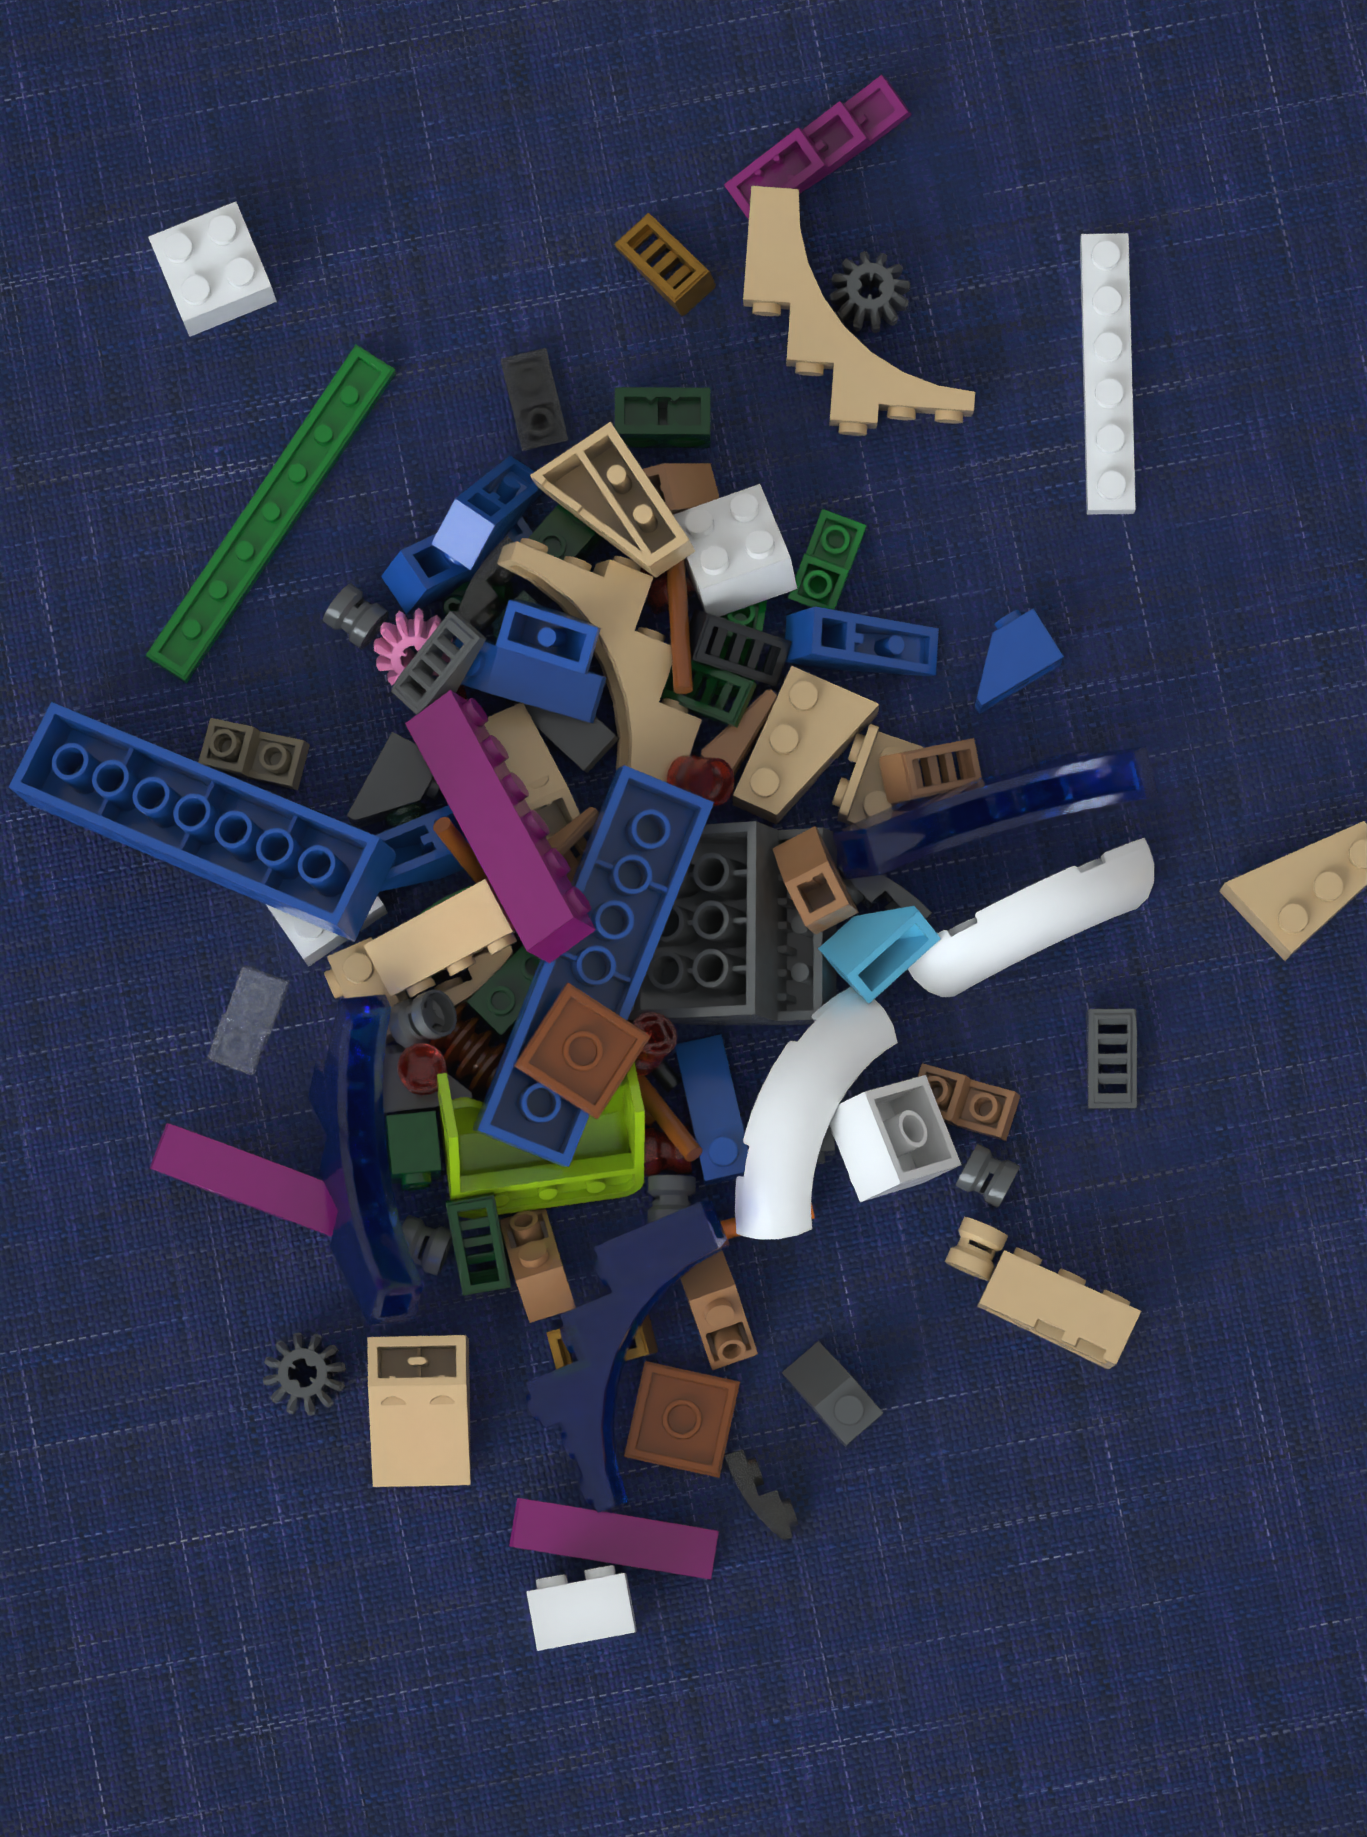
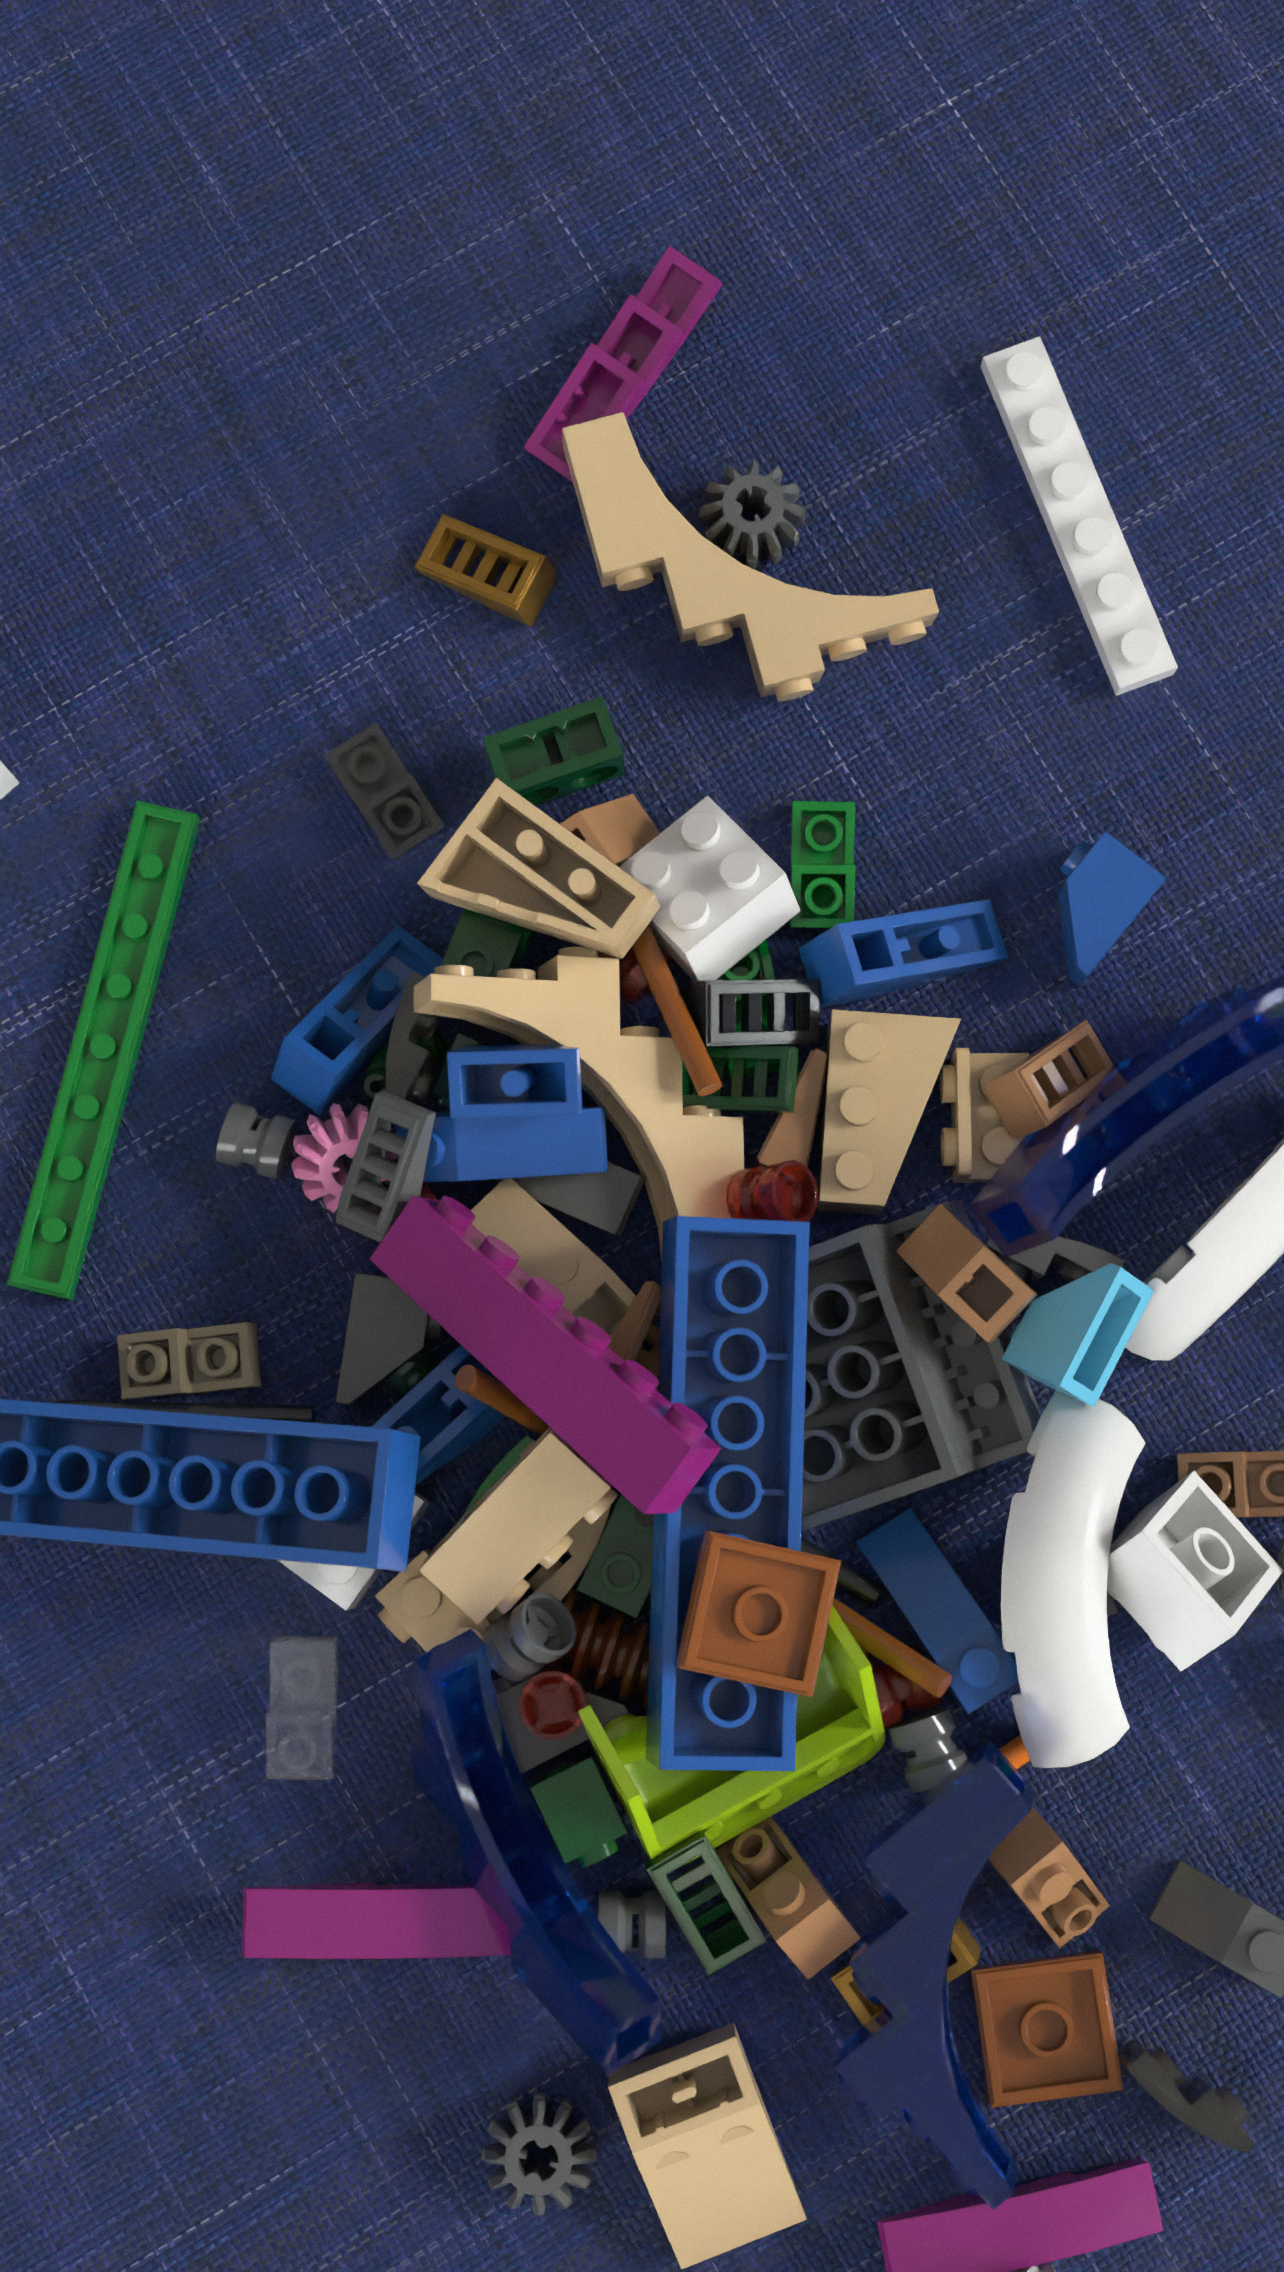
camera: 20 degrees left, 0 degrees up
(486, 513) = (376, 953): blue slope -> none
(659, 1045) = (839, 1539): clear red wheel -> none

